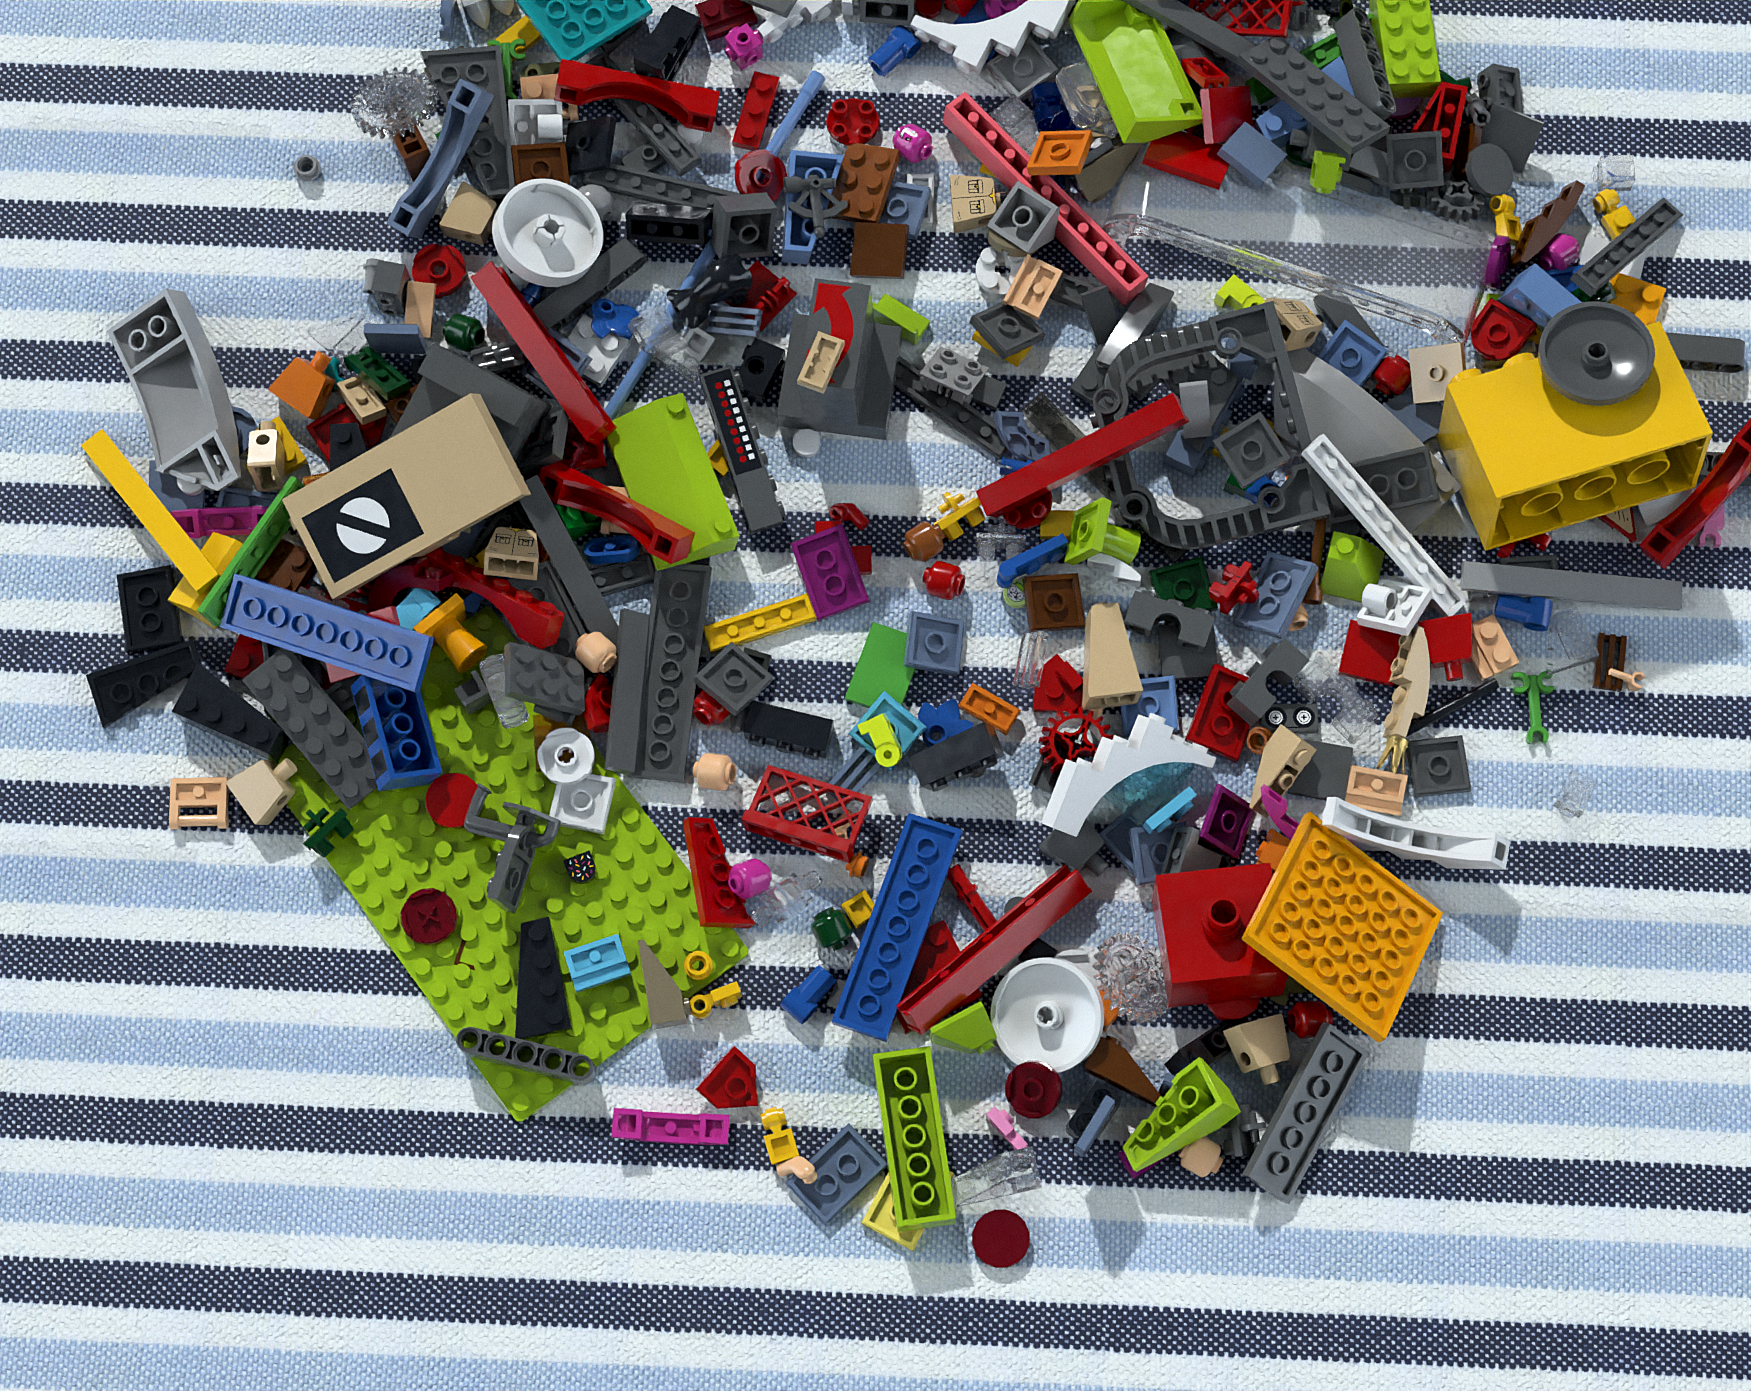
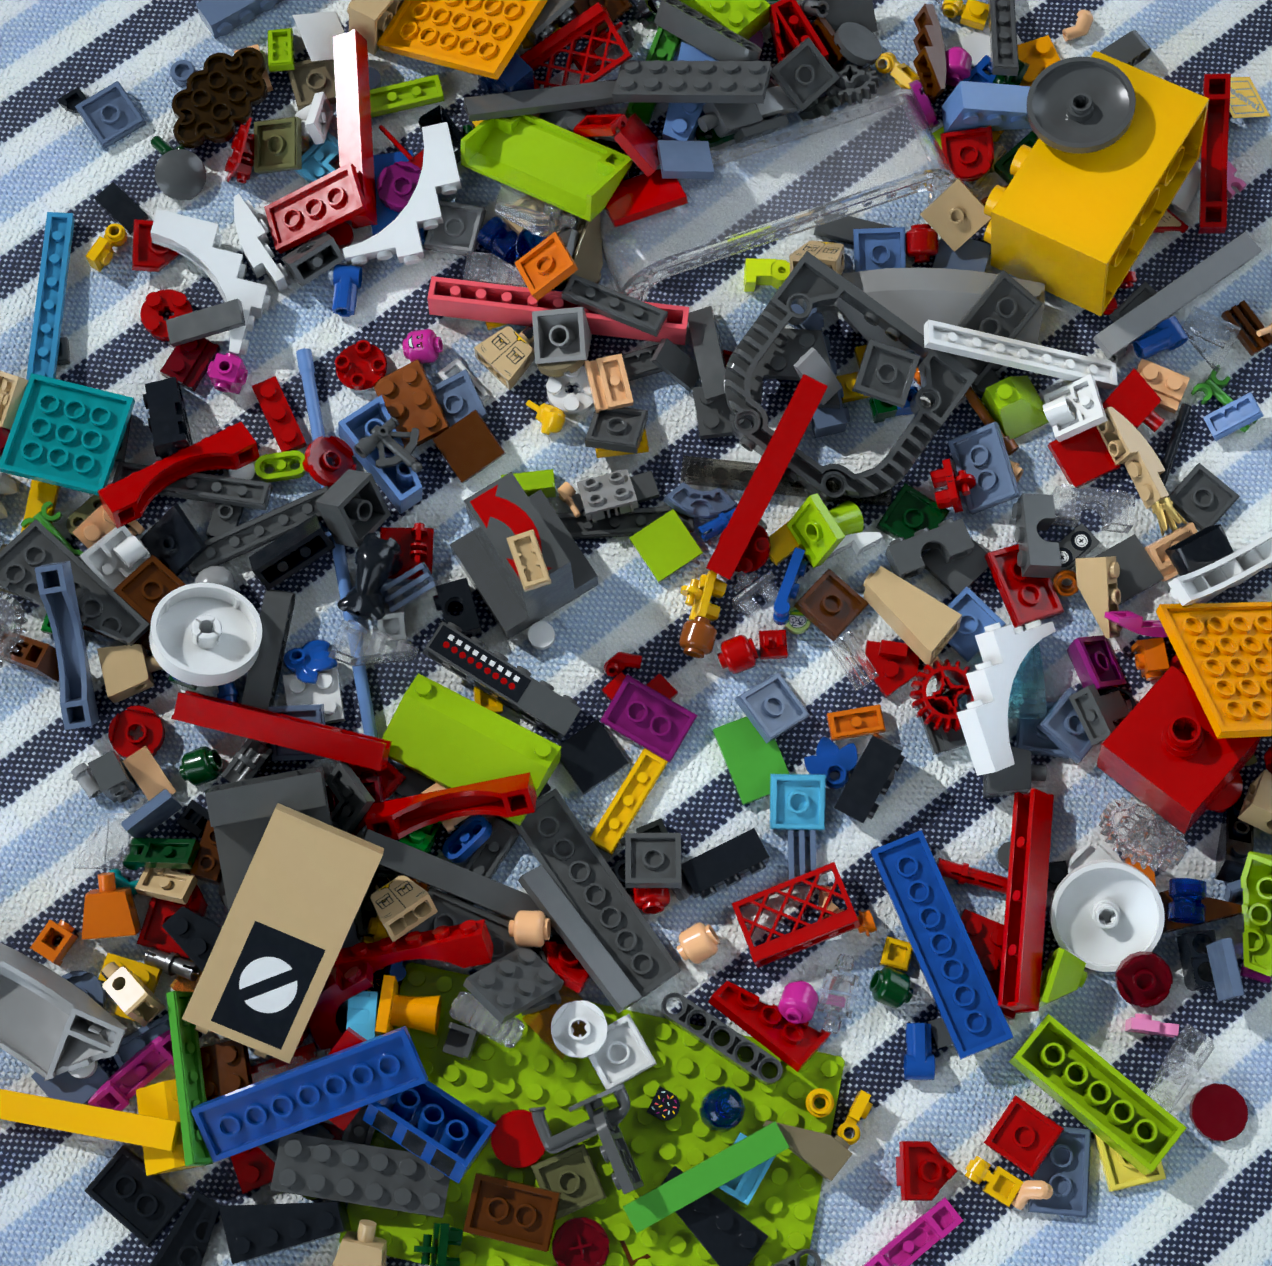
camera: 45 degrees left, 0 degrees up
(242, 370) = (45, 941): none -> orange brick
(315, 460) = (171, 964): none -> flat silver pin
(400, 847) = (512, 1212): none -> reddish brown plate
(462, 863) = (573, 1176): none -> olive tile
(562, 941) = (706, 1177): none -> bright green tile
(621, 907) = (722, 1109): none -> hair
(664, 841) = (728, 1051): none -> dark grey beam
(724, 150) = (282, 466): none -> lime plate
(761, 566) = (591, 757): none -> black tile
(831, 1123) = (1024, 1136): none -> red tile
(884, 739) = (812, 814): neon yellow leg -> none
(924, 347) = (565, 492): none -> light nougat hand
(964, 277) = (550, 417): none -> yellow piece
(964, 451) = (665, 545): none -> lime tile
(980, 596) = (773, 644): none -> red tile
(1088, 227) = (614, 305): none -> dark grey tile
(1117, 1053) = (1187, 901): none -> clear blue wheel
(1175, 808) = (1056, 687): medium azure plate -> none
(1326, 171) = (750, 130): lime brick -> none
(1391, 800) = (1199, 550): none -> black piece
(1524, 720) = (1233, 416): none -> medium blue plate
(1702, 304) = (1081, 28): none -> light nougat arm

